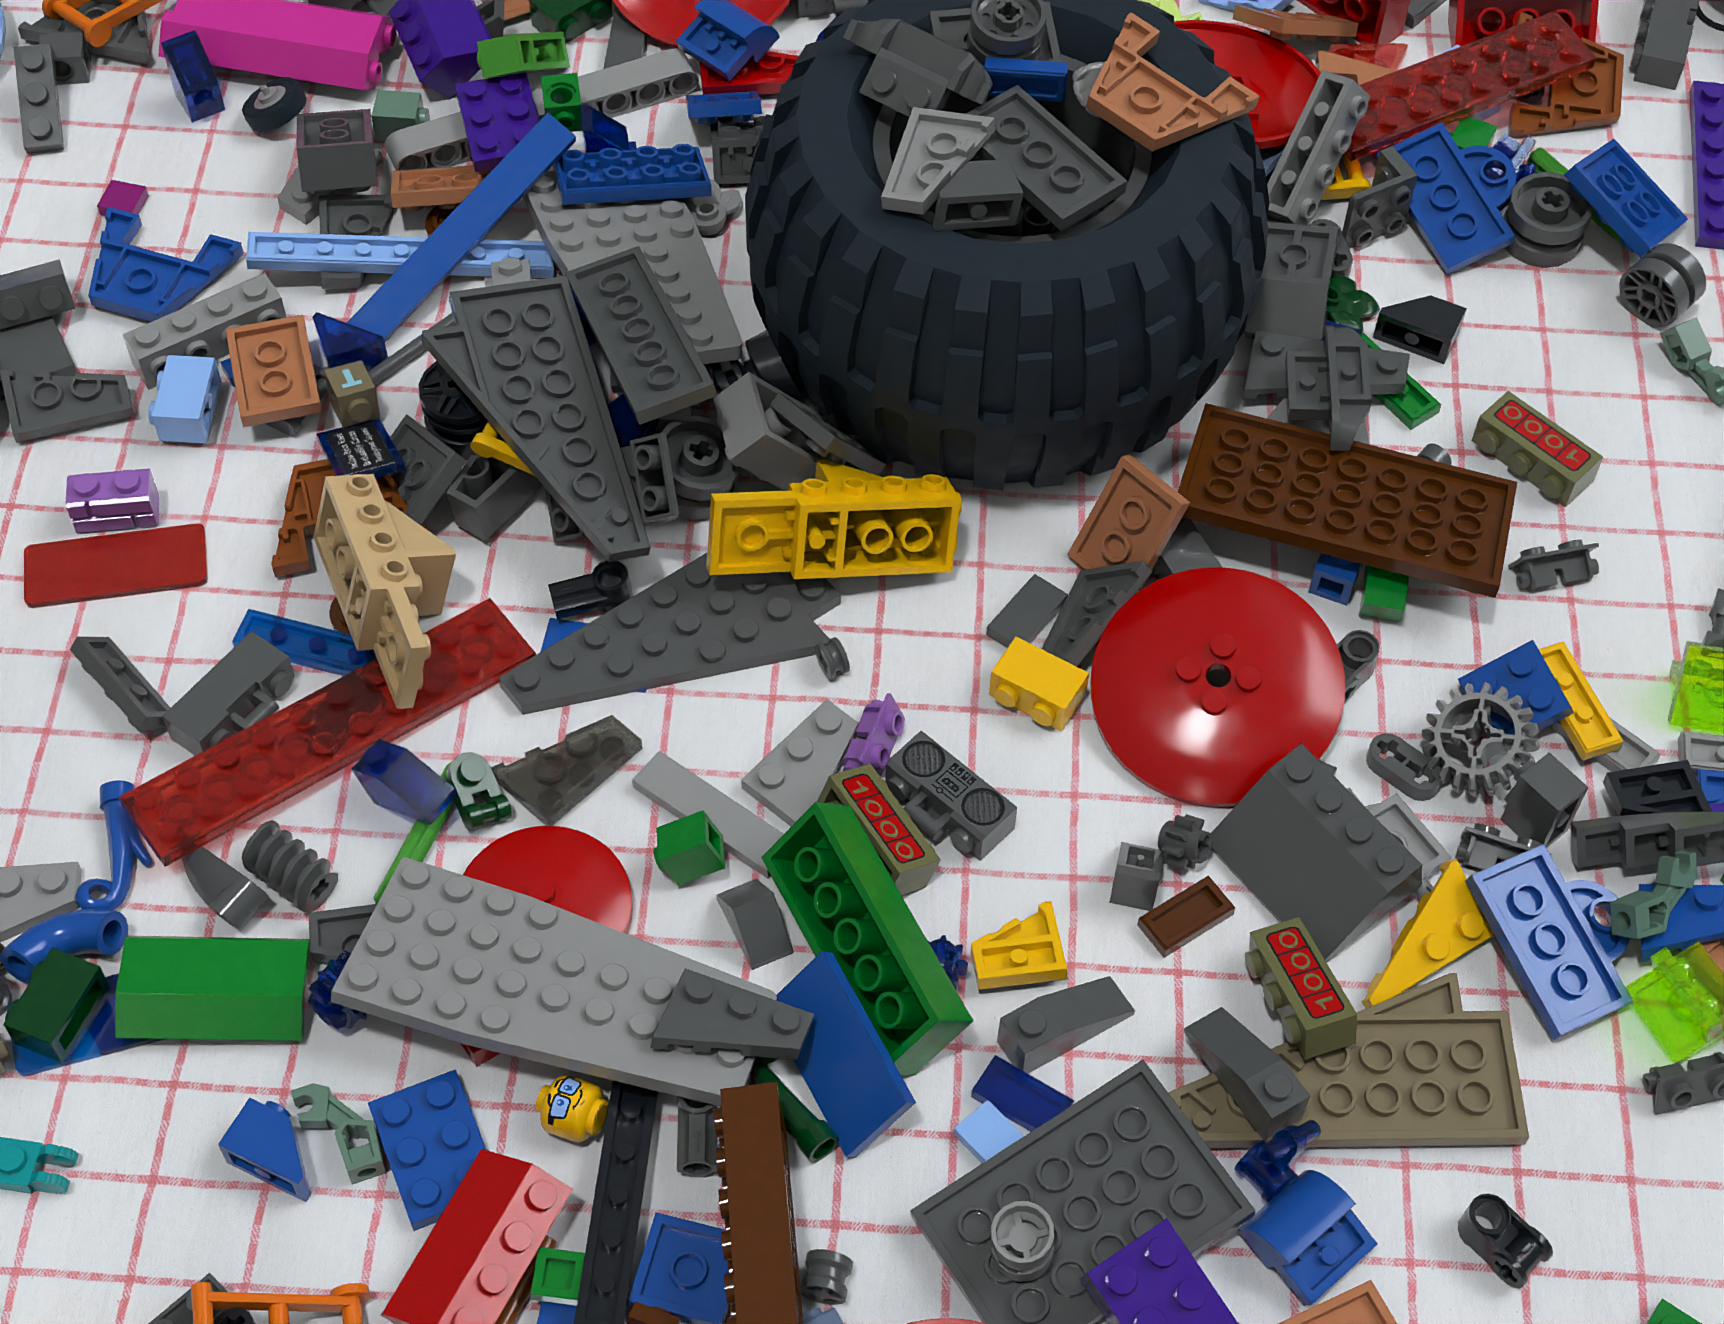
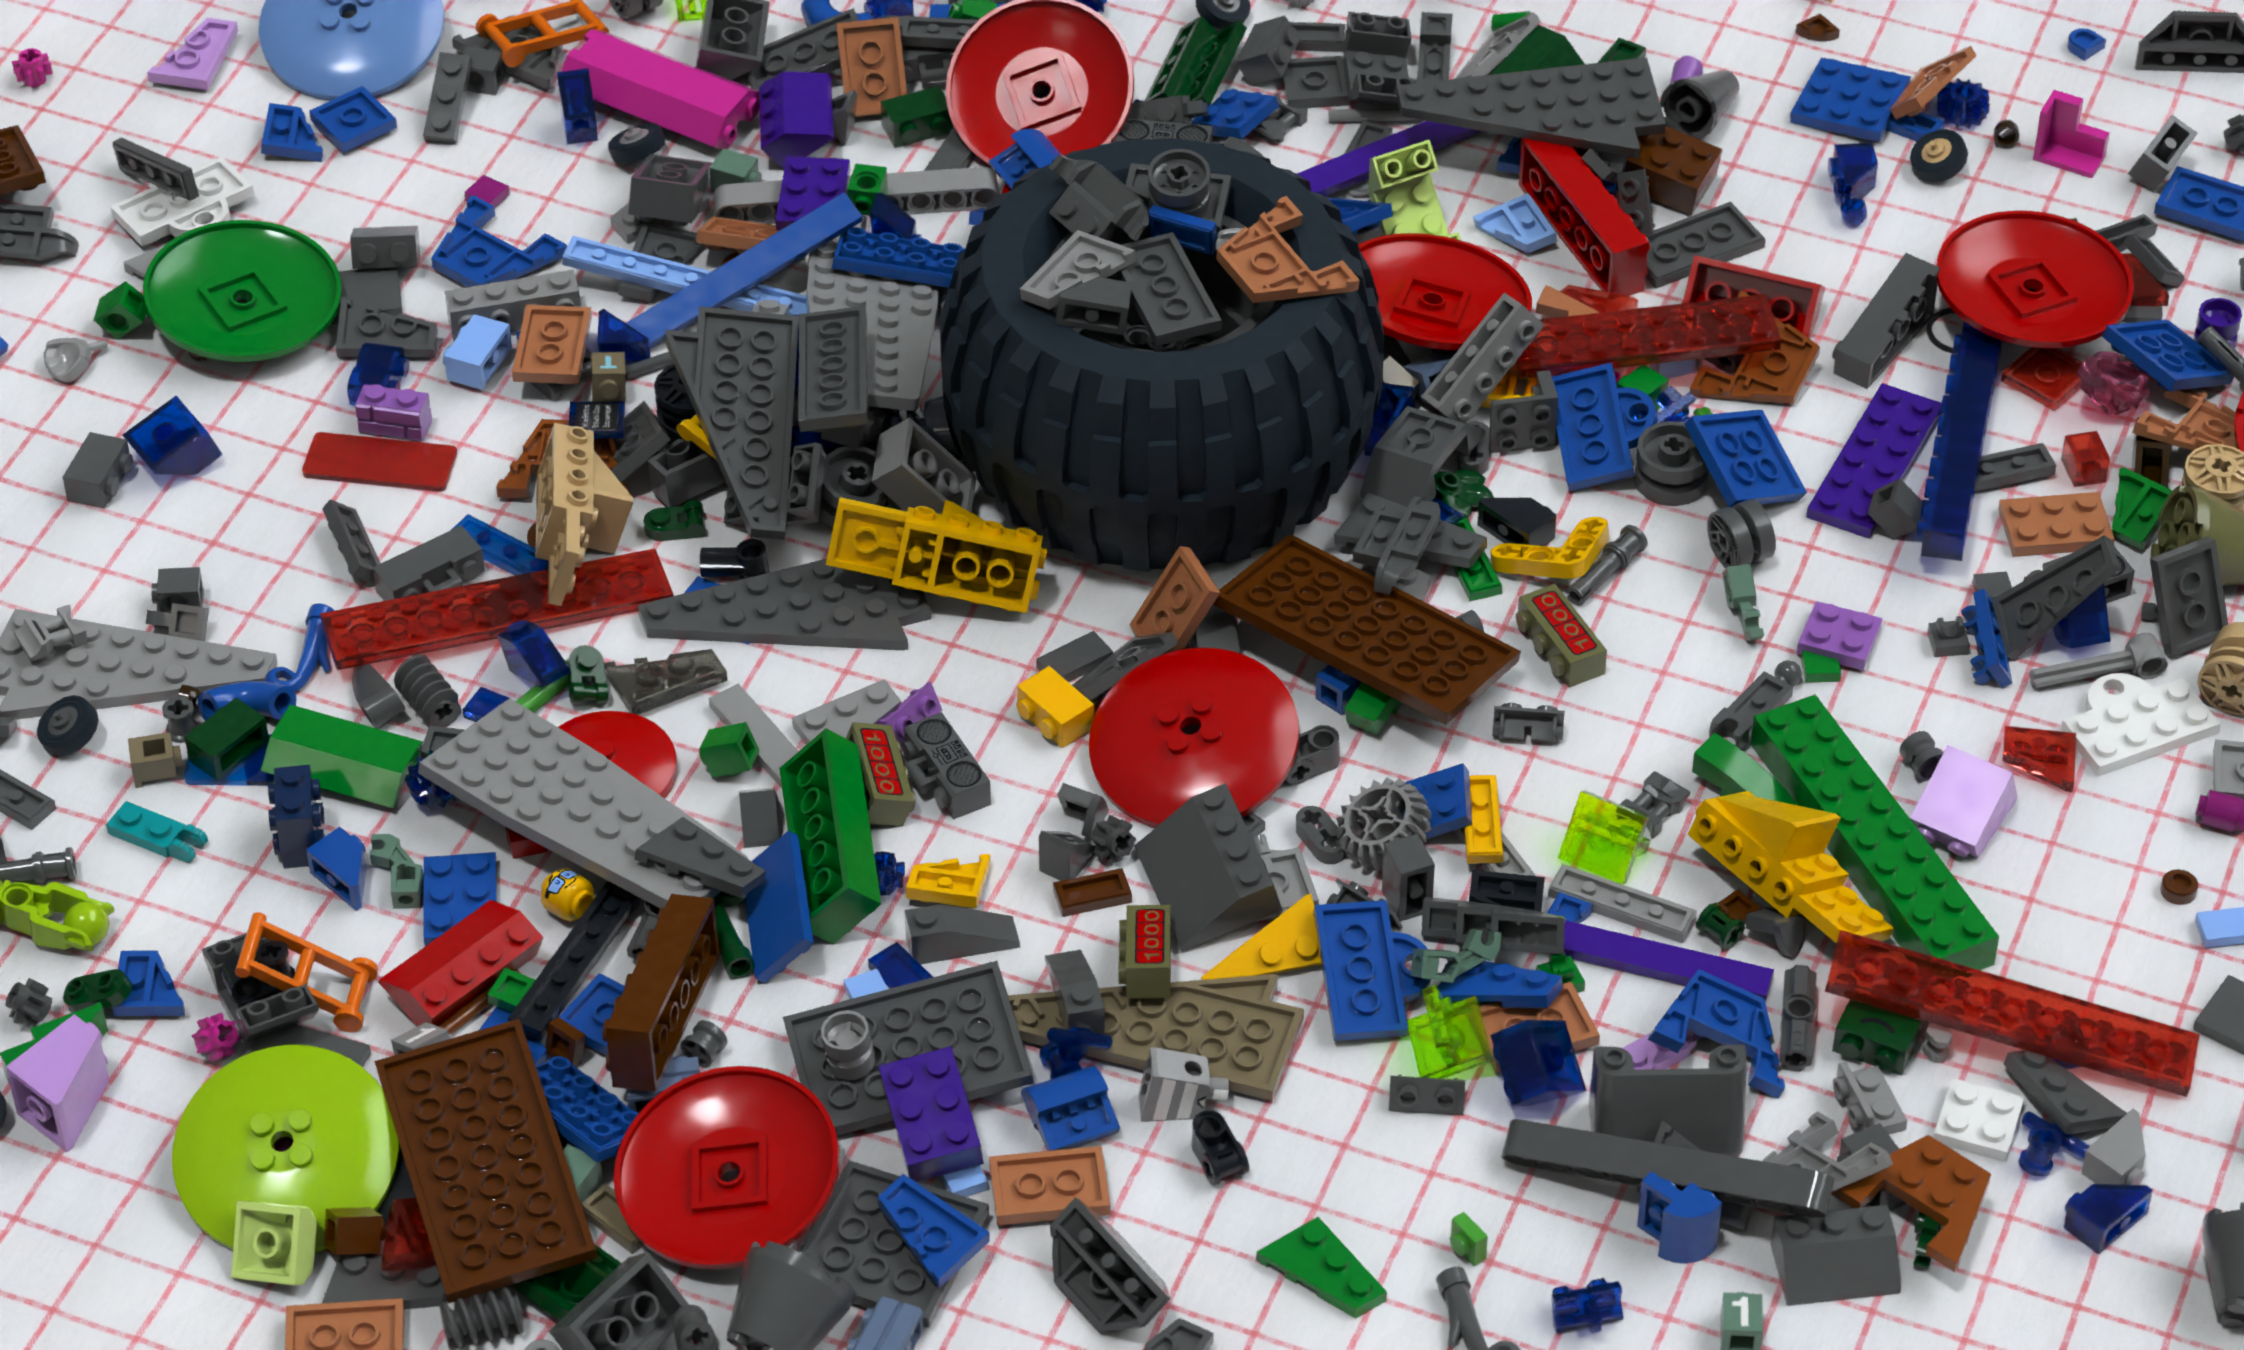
camera: 20 degrees right, 10 degrees down
(73, 449) = (377, 365): none -> clear blue brick
(187, 1096) = (295, 814): none -> dark blue brick
(366, 863) = (482, 703): none -> clear blue tile
(484, 560) = (675, 522): none -> dark green plate
(522, 54) = (854, 143): bright green slope -> none
(827, 439) = (967, 492): dark grey wing -> none
(832, 658) = (902, 651): dark grey bush -> none
(1133, 804) = (1083, 803): none -> dark grey tile
(1303, 25) = (1545, 265): nougat wing -> none
(1421, 1168) = (1177, 1086): none -> light grey torso
(1445, 367) = (1565, 562): none -> yellow beam
(1539, 341) = (1614, 557): none -> dark grey pin

